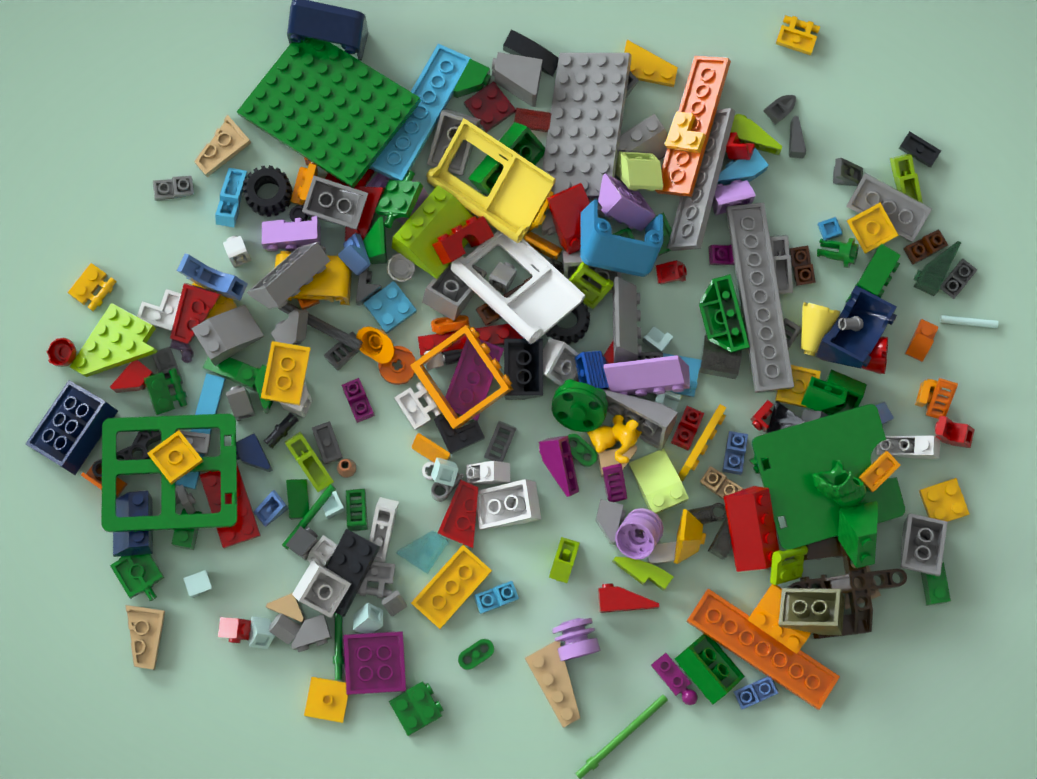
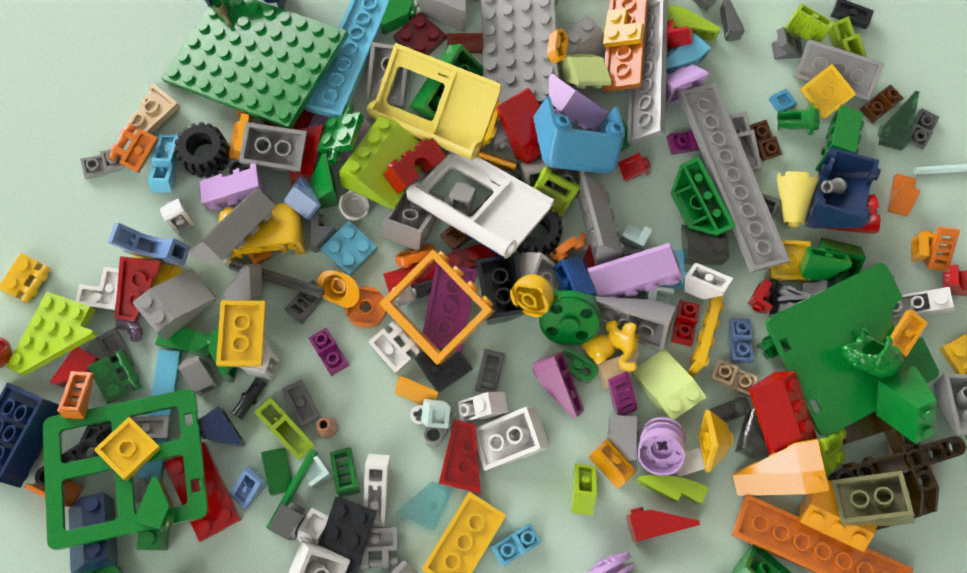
camera: 10 degrees left, 5 degrees down
(133, 415) = (76, 409): none -> orange slope
(195, 511) = (156, 507): none -> green slope
(209, 183) = (137, 152): none -> orange plate
(304, 56) = (222, 11): none -> olive hand
(549, 380) = (533, 295): none -> yellow cylinder
(587, 343) = (568, 246): none -> orange plate
(595, 542) = (612, 463): none -> light orange slope
(617, 144) = (557, 46): none -> light orange beam
(711, 394) = (706, 282): none -> white slope
(744, 574) = (790, 471): none -> light orange wedge
(871, 156) = (809, 24): none -> lime brick

